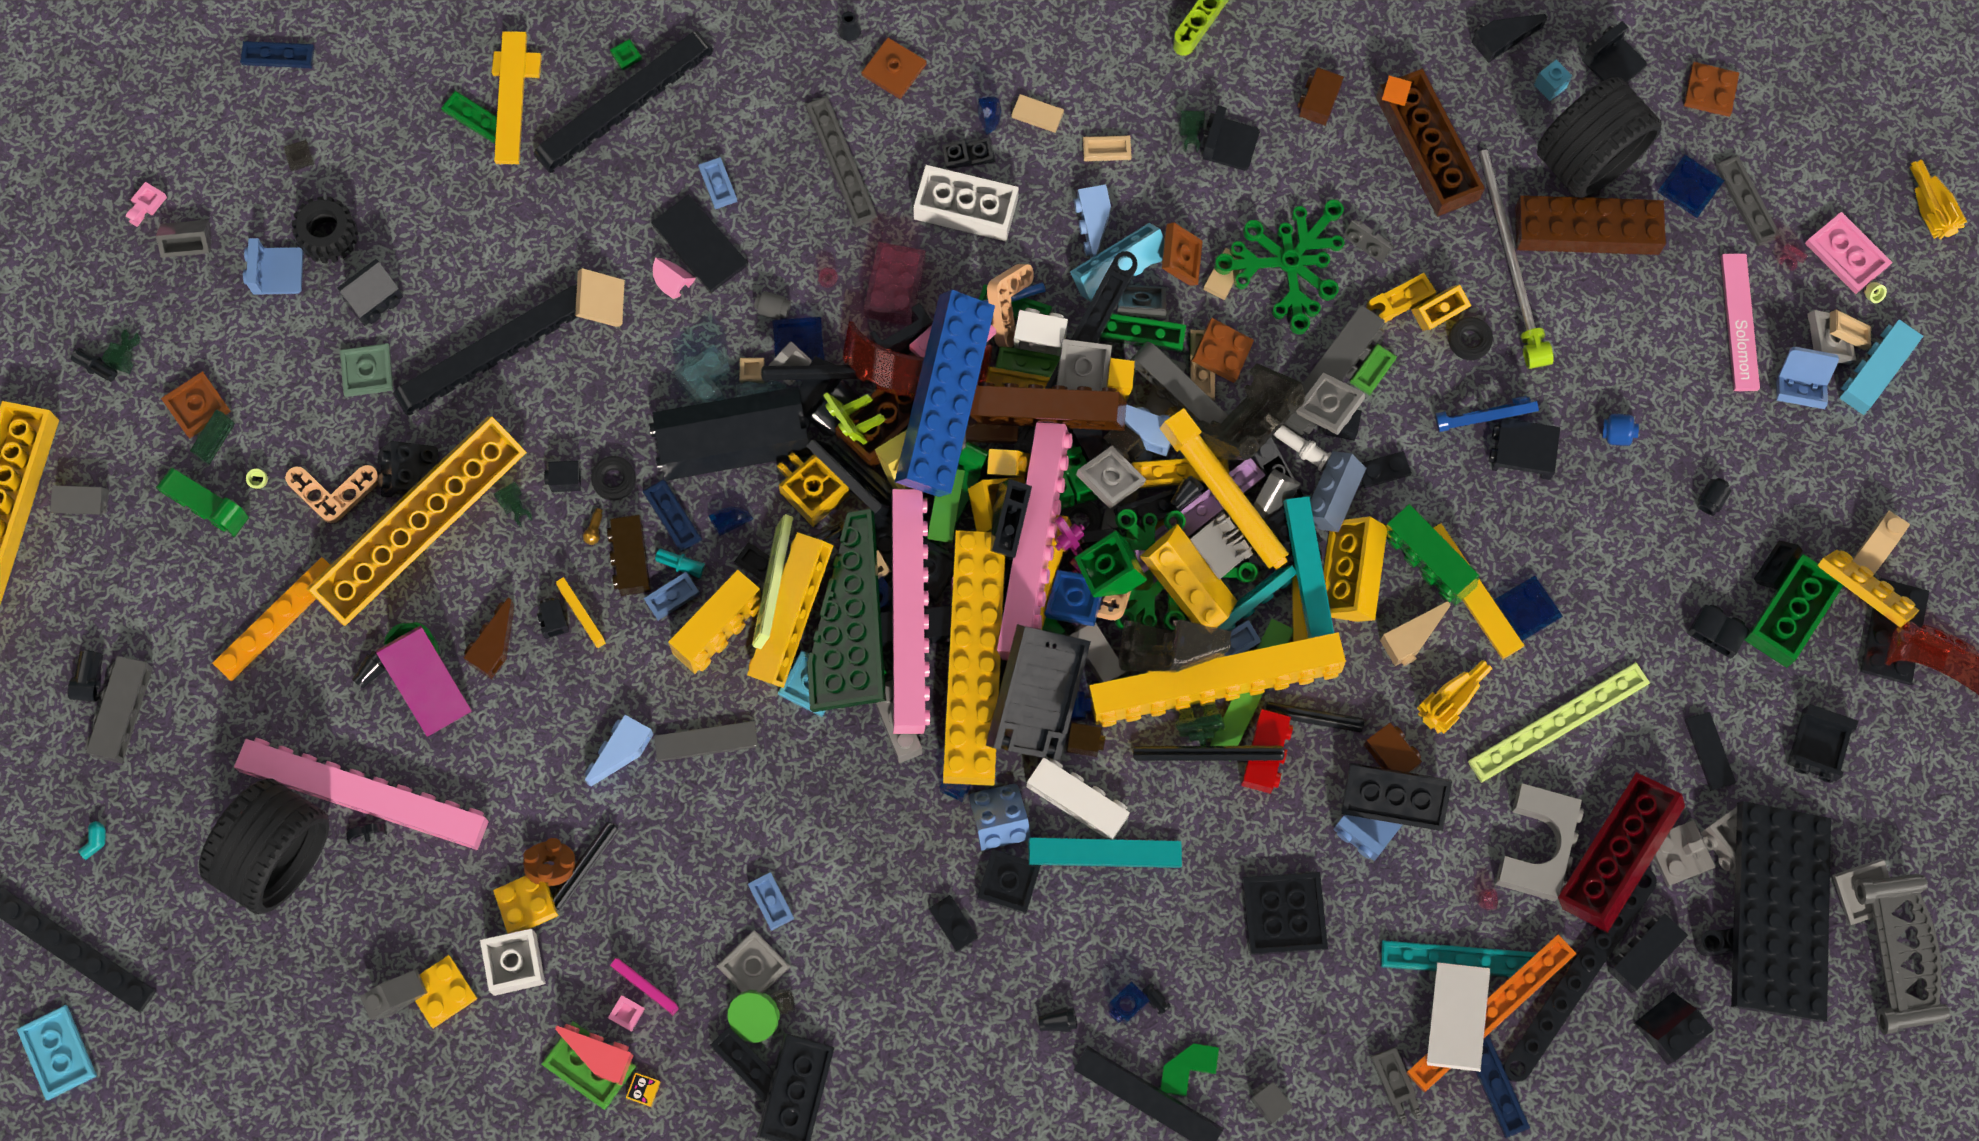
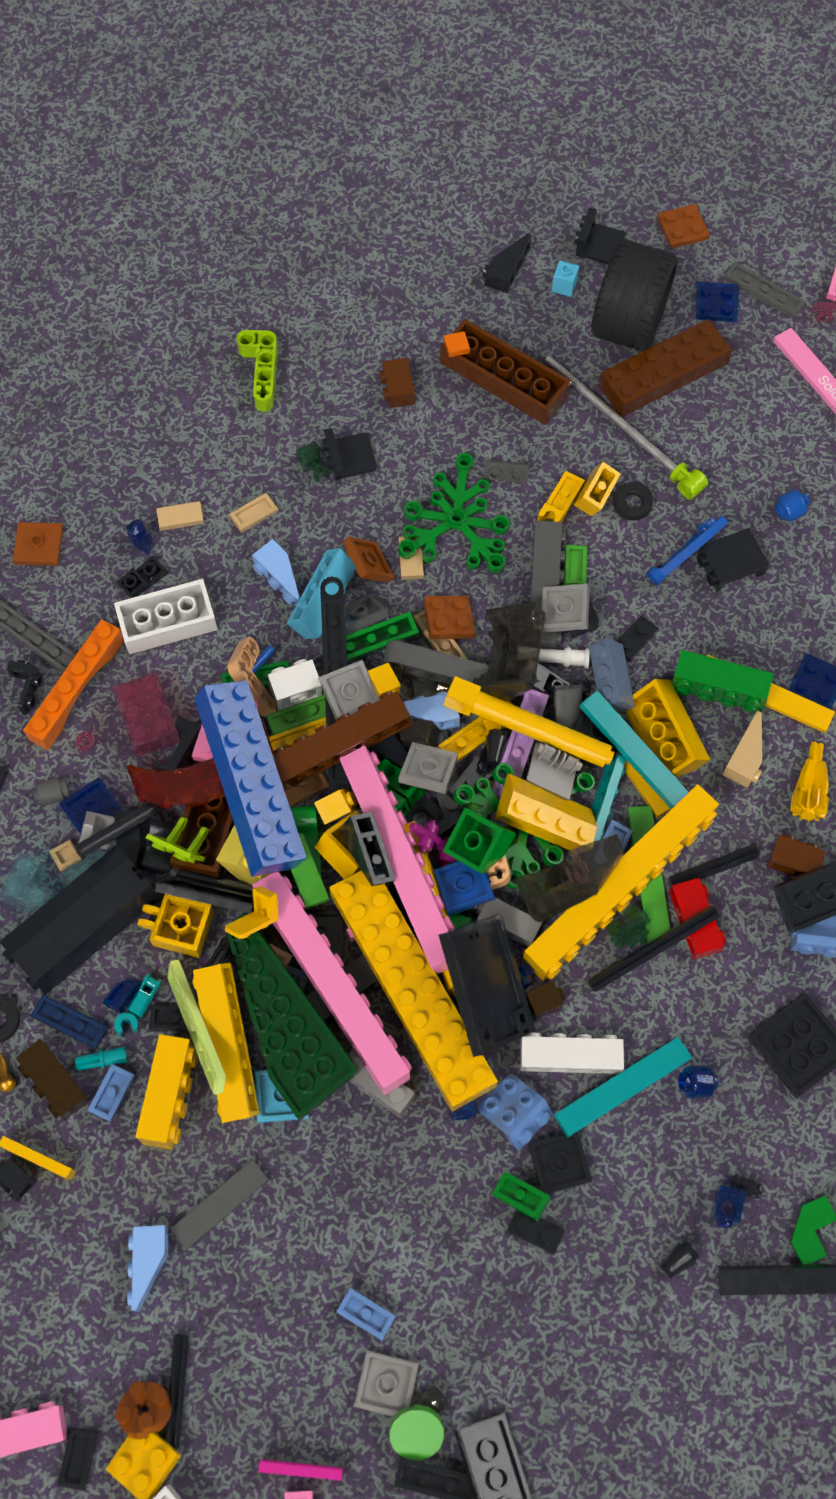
camera: 30 degrees left, 5 degrees down
(476, 869) = (77, 1458): none -> black tile
(736, 536) = (137, 1006): none -> teal piece
(812, 182) = (30, 673): none -> black bracket
(818, 233) = (54, 710): none -> orange arch
(885, 521) = (264, 914): none -> yellow bracket
(958, 887) = (521, 1196): none -> green plate
(1172, 888) = (698, 1082): none -> clear blue head

